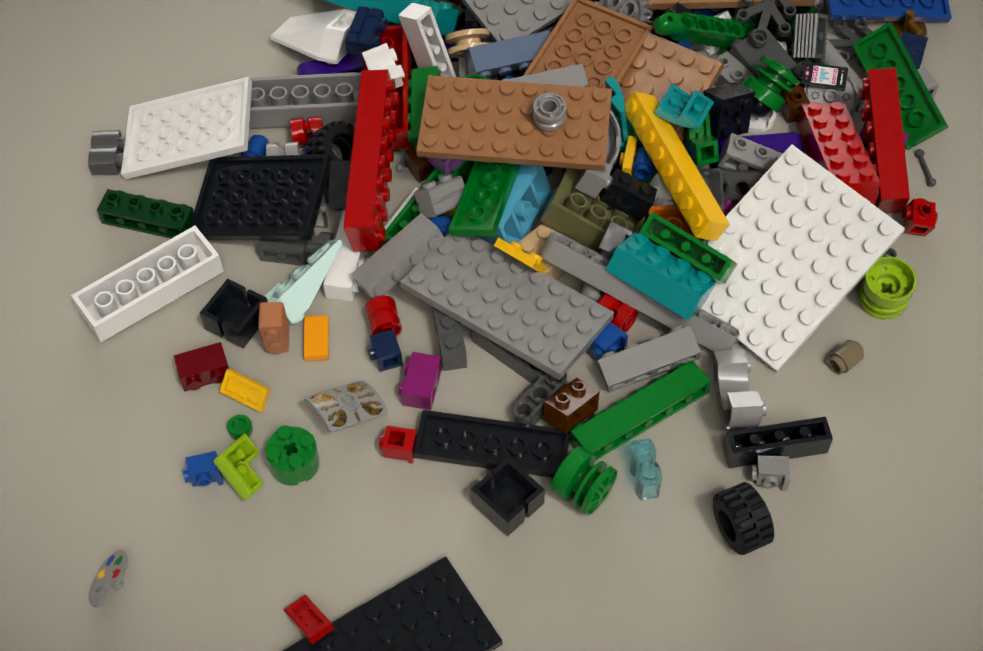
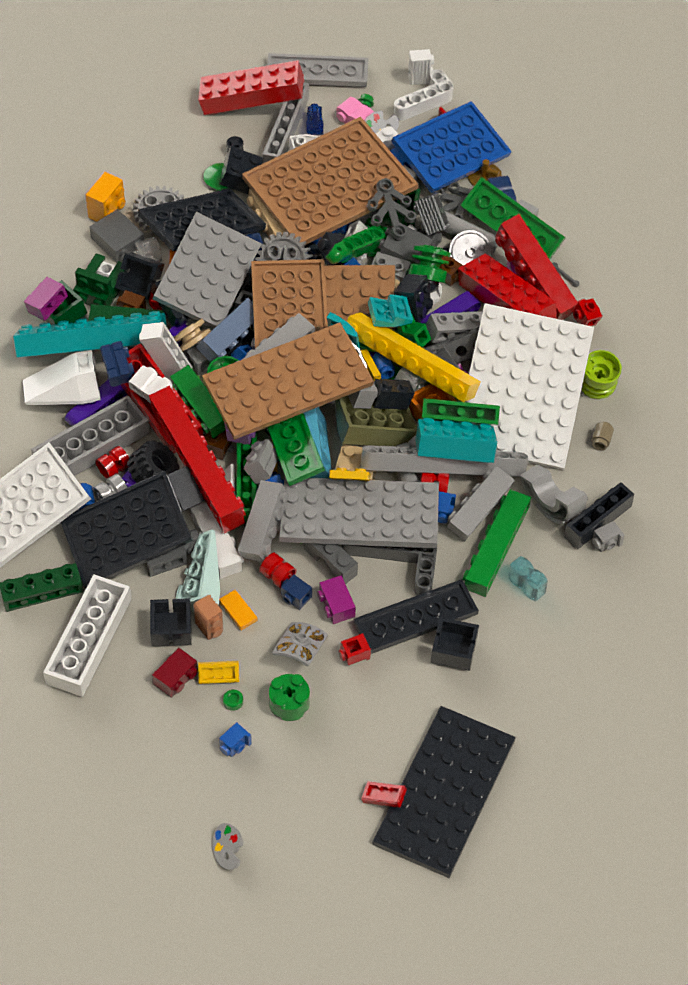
camera: 35 degrees left, 0 degrees up
(235, 466) = (259, 726): lime brick -> none
(549, 111) = (313, 353): light grey wheel -> none
(571, 405) = (451, 562): reddish brown brick -> none
(584, 480) = (497, 606): green wheel -> none
(612, 238) = (405, 432): dark grey brick -> none
(743, 518) = (614, 575): black tyre -> none
(824, 76) = (460, 239): tile -> none

